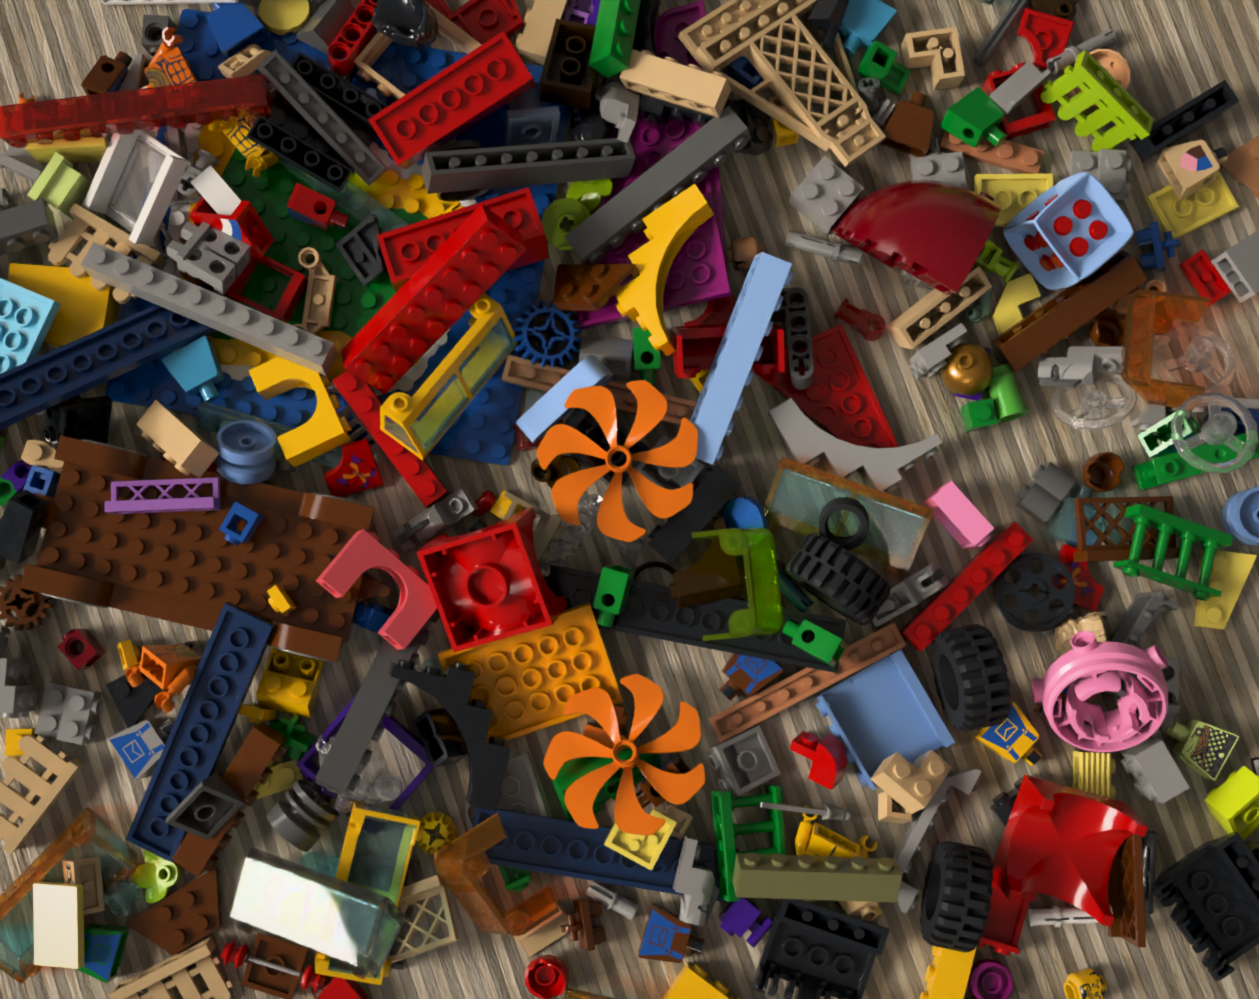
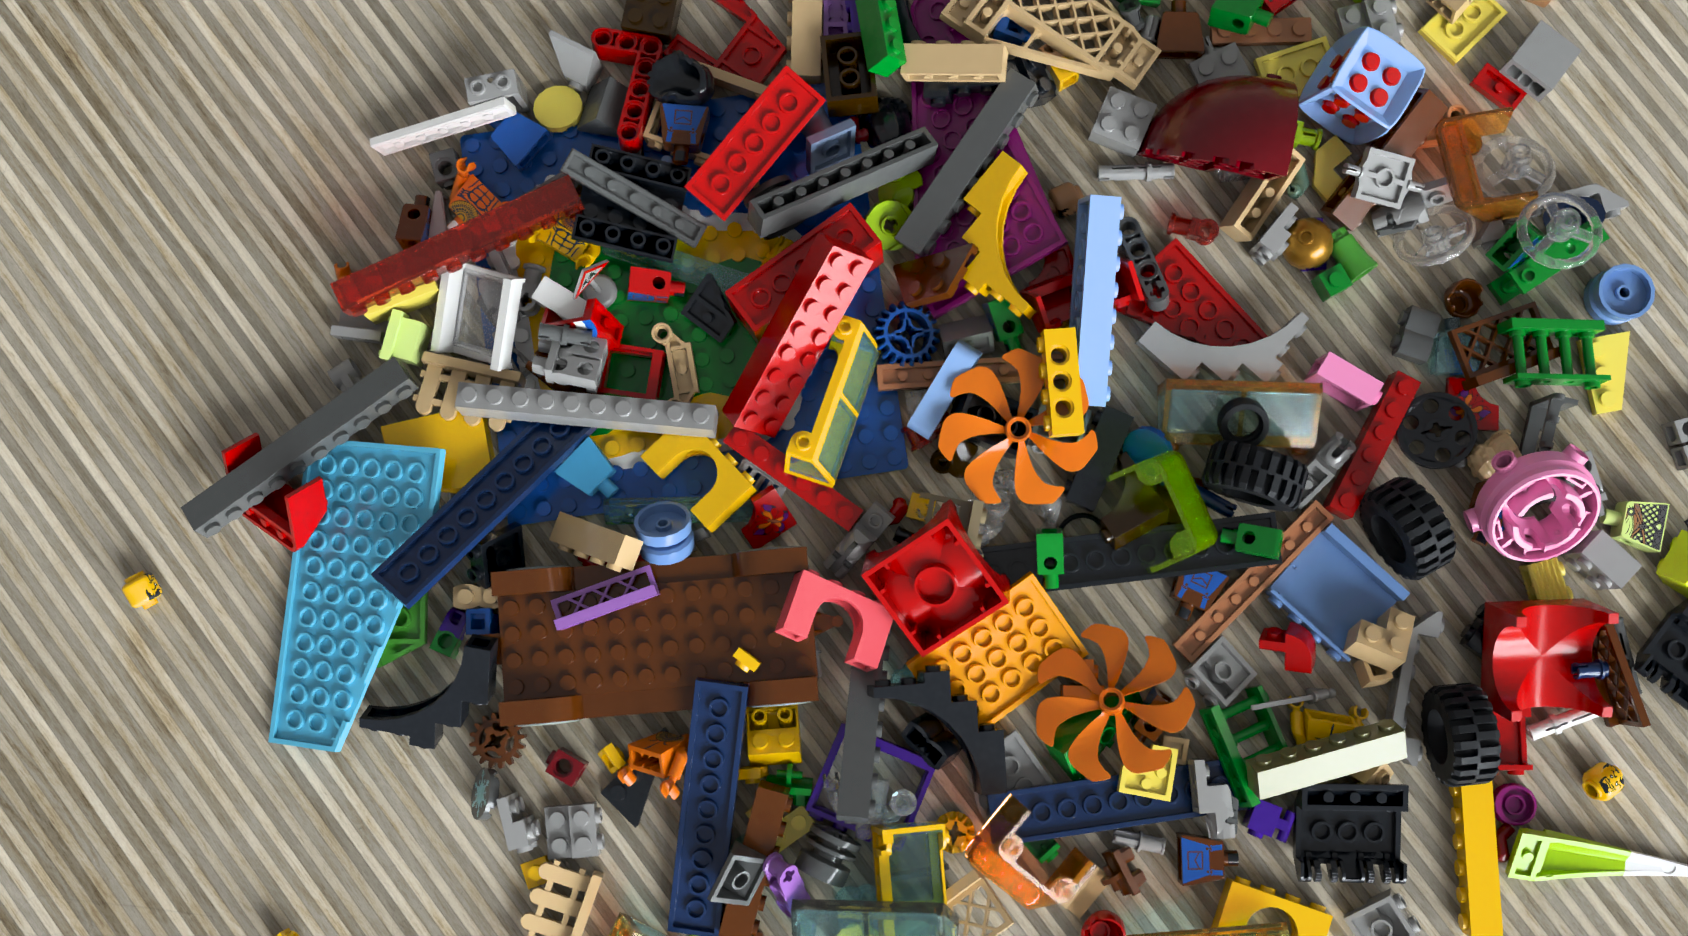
camera: 10 degrees left, 0 degrees up
(142, 745) = (656, 837): torso -> none
(208, 227) = (565, 334): none -> dark grey pin
(235, 516) = (681, 592): blue brick -> none
(244, 61) = (537, 172): tan plate -> none
(250, 826) = (784, 881): none -> medium lavender piece
(264, 196) = (596, 285): none -> light grey piece
(372, 616) = (832, 649): blue brick -> none
(393, 67) = (683, 129): none -> torso
(565, 126) = (861, 134): none -> dark red arm
(618, 105) = (905, 100): light grey plate -> none
(689, 386) = (1065, 342): none -> yellow brick
(1012, 738) = (1461, 574): torso -> none
(1059, 327) = (1383, 177): none -> plate
(1107, 329) = (1427, 165): reddish brown hair -> none
(1111, 875) = (1597, 669): none -> dark blue pin
(1152, 236) = (1437, 65): blue hips -> none

